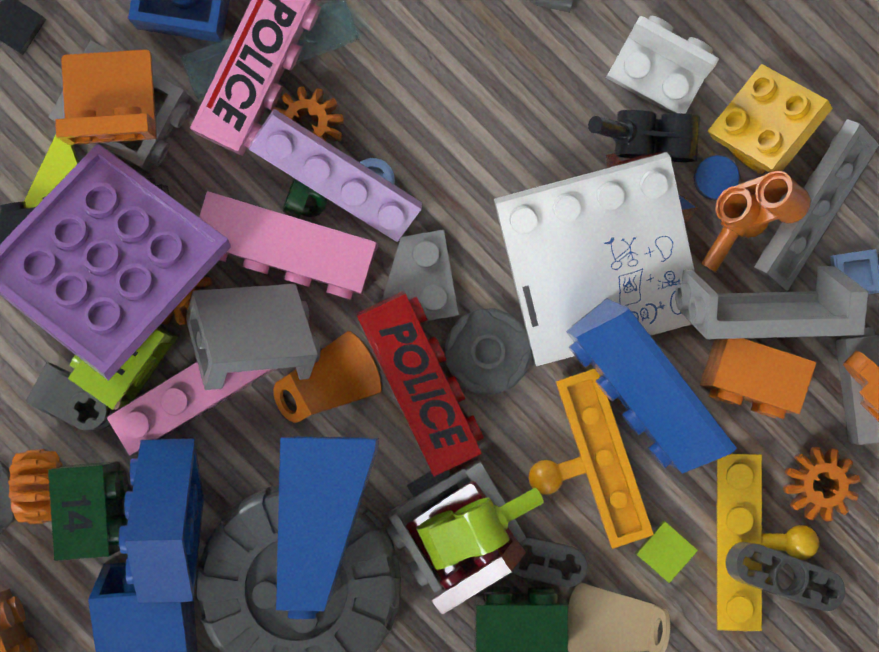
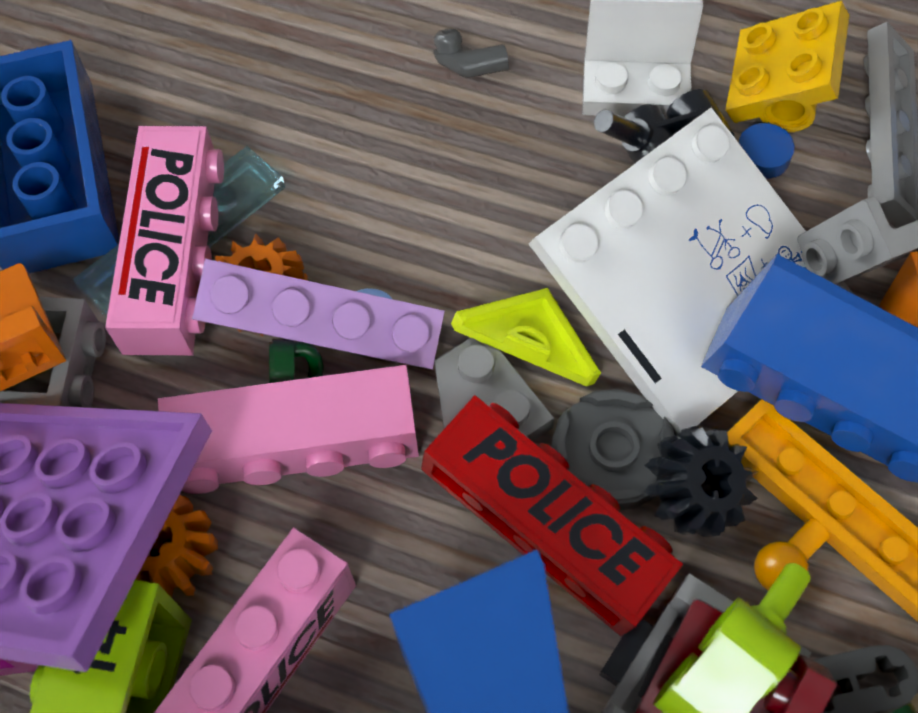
camera: 25 degrees left, 25 degrees down
(250, 331) = (280, 536): light grey panel -> none
(339, 378) = (424, 560): orange piece -> none
(476, 245) = (532, 330): none -> neon yellow tile
(540, 406) = (700, 482): none -> black gear
(762, 206) = (823, 147): orange beam -> none

